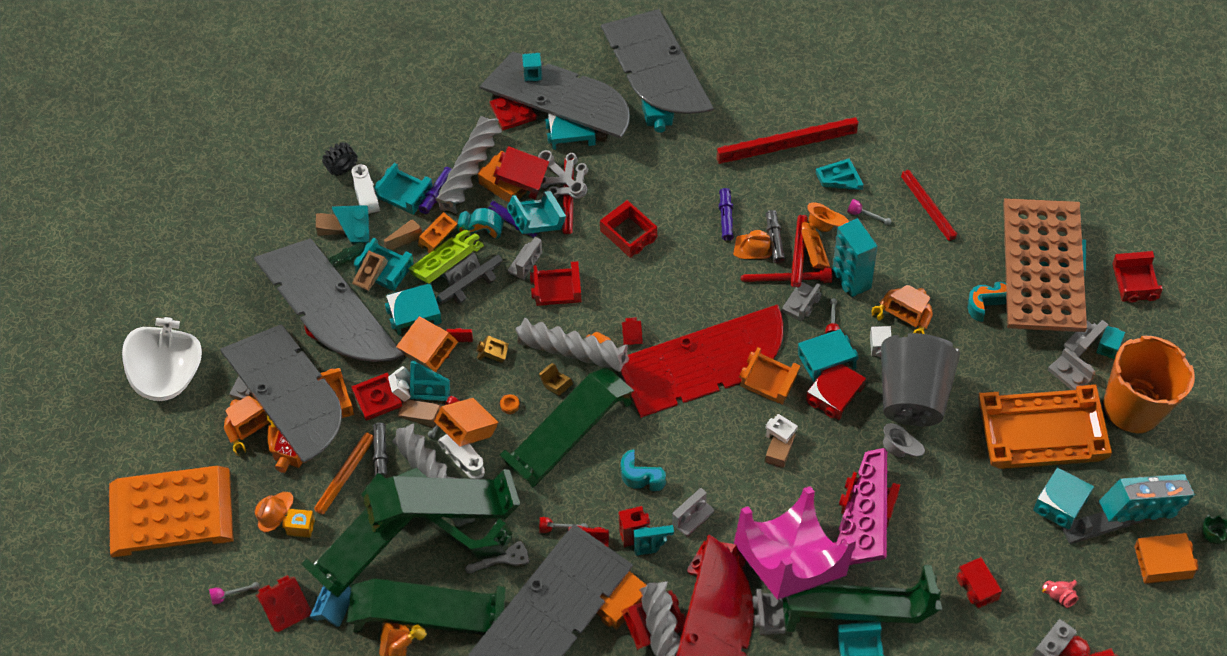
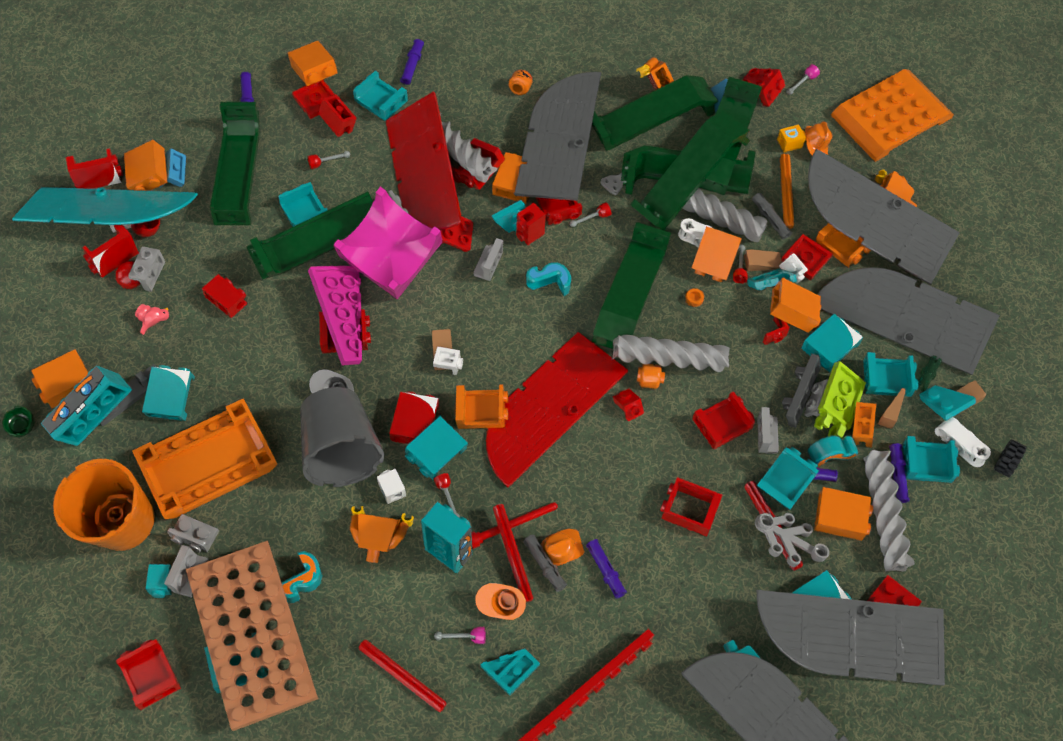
camera: 150 degrees right, 5 degrees up
(160, 360) = (1000, 205): white piece -> none
(369, 270) = (896, 362): medium nougat slope -> none
(492, 349) = (739, 334): pearl gold bracket -> none
(521, 170) = (830, 510): red panel -> none
(532, 67) = (906, 652): teal brick -> none
(554, 380) = (667, 328): pearl gold bracket -> none
(801, 301) = (486, 497): light grey bracket -> none
(814, 246) = (499, 563): orange hinge -> none

